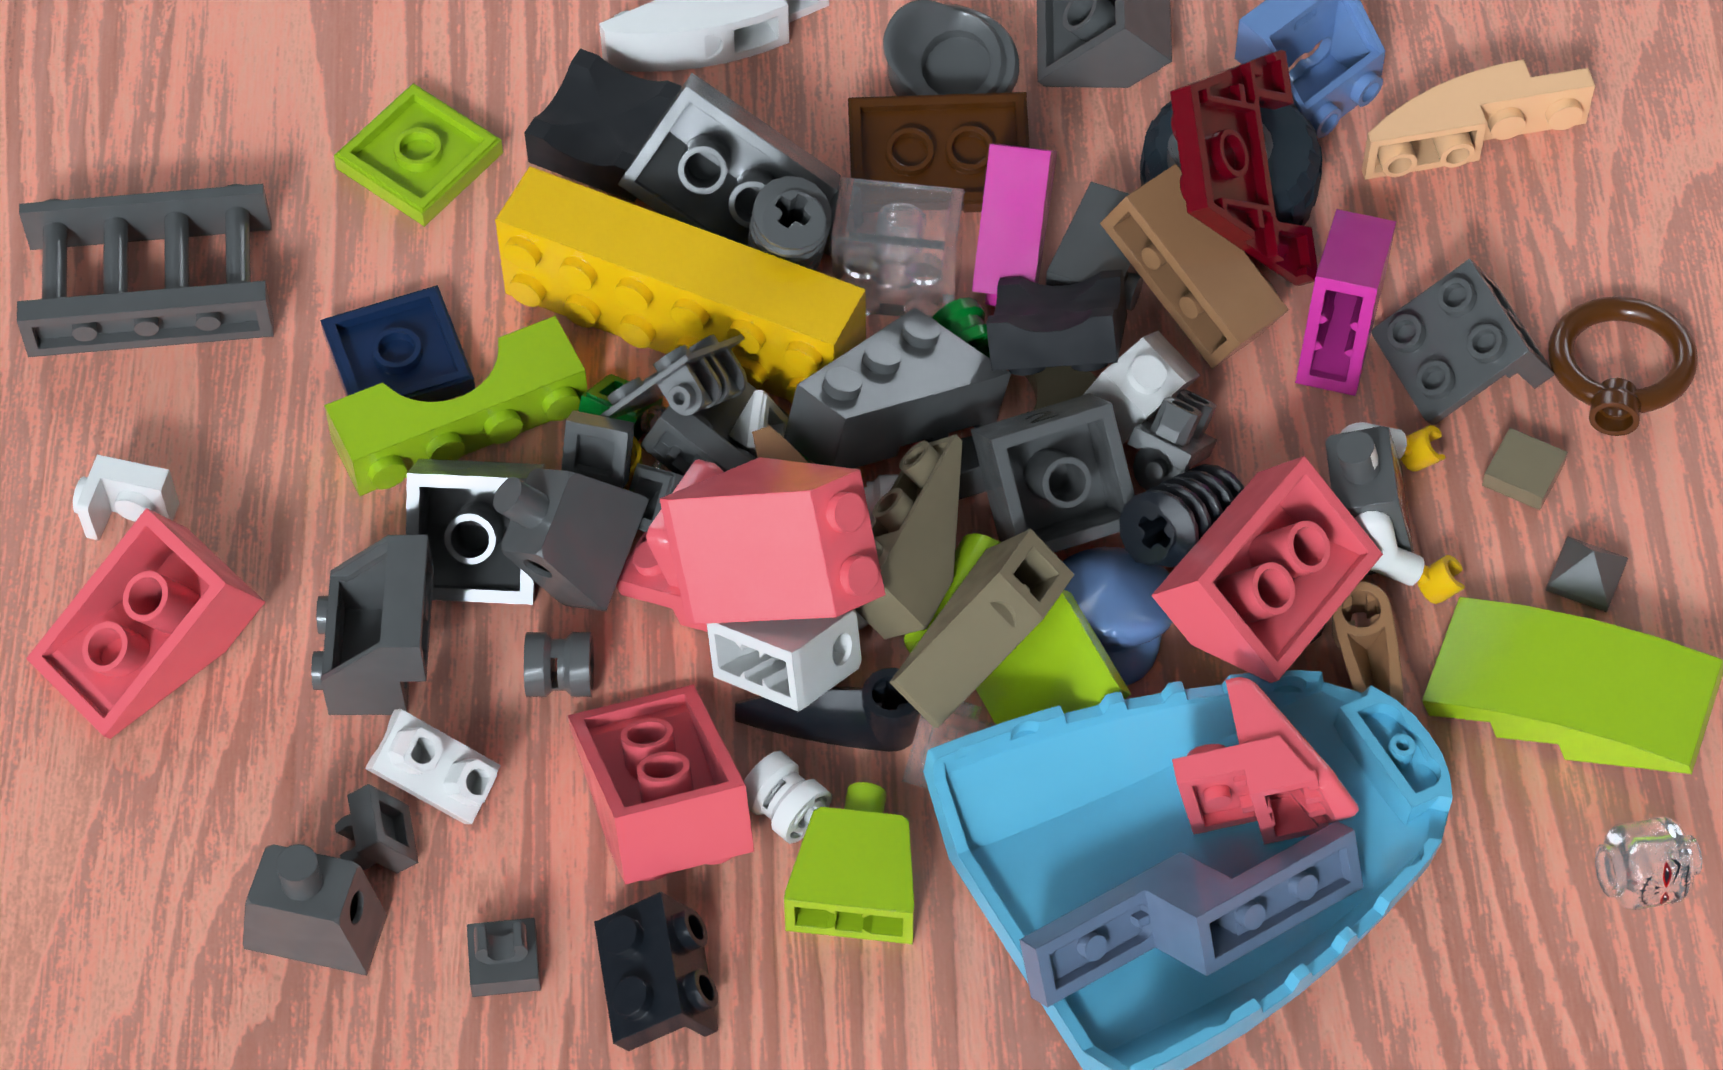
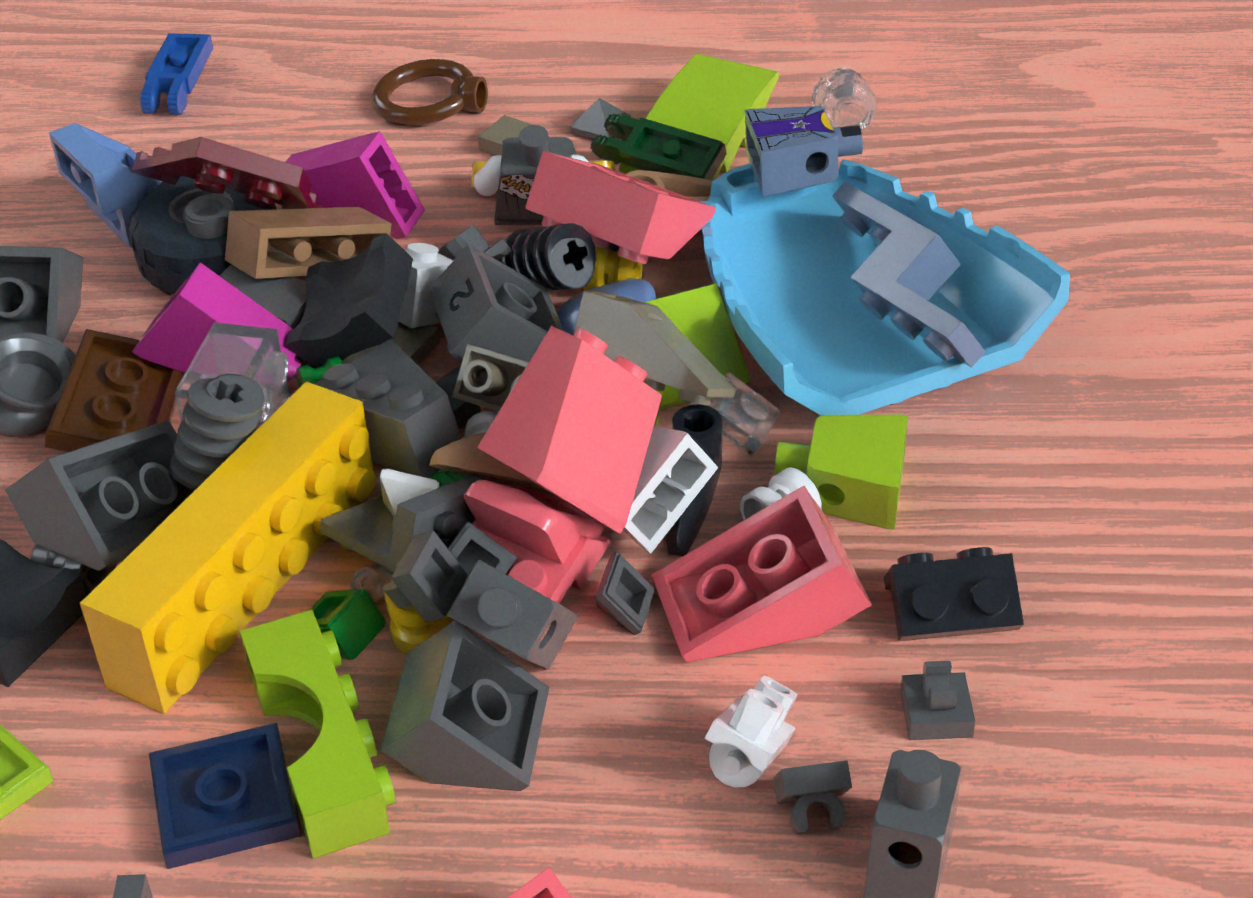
camera: 85 degrees left, 15 degrees down
(375, 627) = (582, 727): dark grey piece -> none
(574, 664) = (632, 652): dark grey wheel -> none
(648, 654) = (624, 594): none -> dark grey slope
(687, 379) = (364, 516): dark grey hinge -> none
(1264, 779) = (785, 223): coral piece -> none
(1416, 763) = (796, 147): none -> sand blue torso
(1455, 117) = (191, 110): light nougat slope -> none
(1458, 343) = (415, 138): dark grey bracket -> none
(1464, 632) = (658, 147): none -> dark green hinge
(1629, 67) = (175, 71): none -> blue hinge

